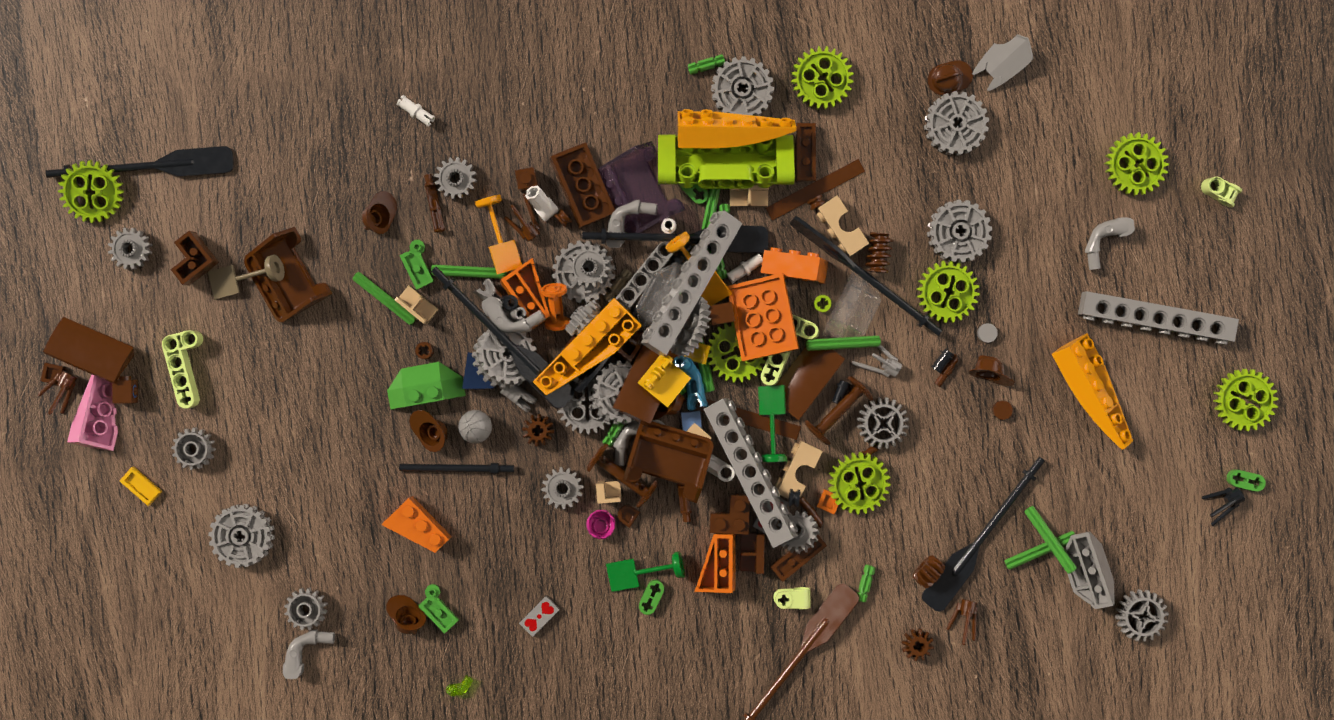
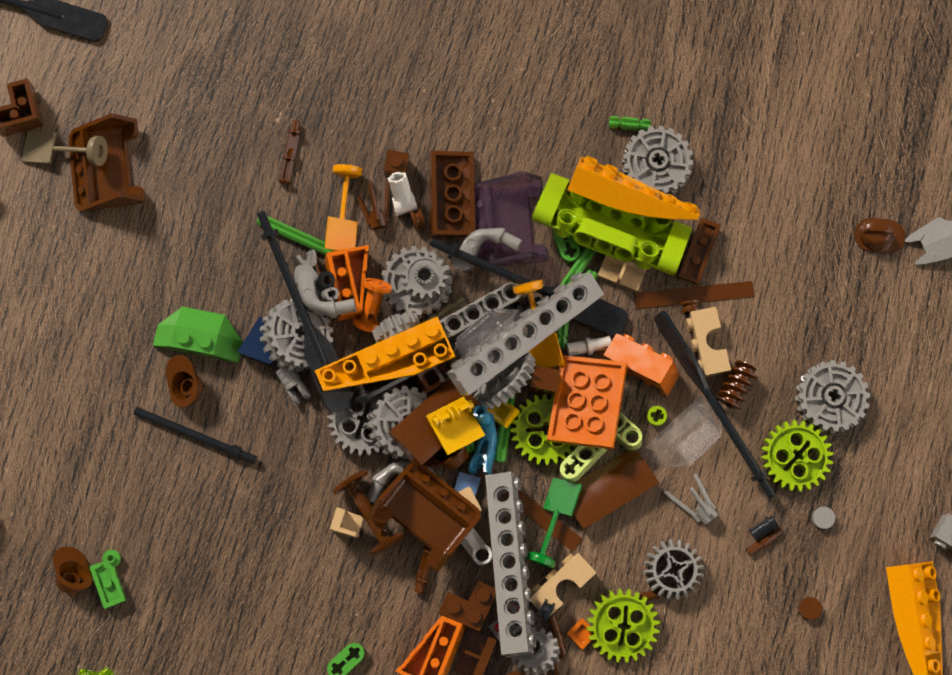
camera: 20 degrees right, 10 degrees down
(380, 212) = (230, 139): reddish brown piece -> none
(384, 298) = (197, 228): bright green axle -> none
(415, 110) = (311, 54): white pin -> none
(416, 265) = (244, 208): bright green hinge -> none
(417, 305) = (228, 248): tan panel -> none
(417, 525) = (127, 478): orange wedge -> none
(424, 356) = (218, 292): reddish brown bush -> none
(465, 182) = (327, 146): light grey gear -> none
(475, 426) = (233, 397): light grey piece -> none
(534, 424) = (297, 421): reddish brown gear -> none
(539, 615) = (215, 632): light grey tile -> none
(552, 487) = (287, 498): light grey gear -> none
(600, 524) = (323, 556): dark pink hair -> none
(612, 434) = (378, 464): bright green axle -> none
(624, 574) = (326, 622): green piece -> none
(627, 515) = (357, 560): reddish brown tile -> none
(666, 230) = (528, 264): white pin -> none
(836, 68) = (726, 187): lime gear -> none
(836, 413) = (631, 535): reddish brown hose -> none
(841, 391) = (641, 517): black pin -> none
(842, 343) = (663, 465): bright green axle -> none
(941, 122) = (864, 299): light grey piece -> none
(991, 370) = (813, 559): reddish brown piece -> none

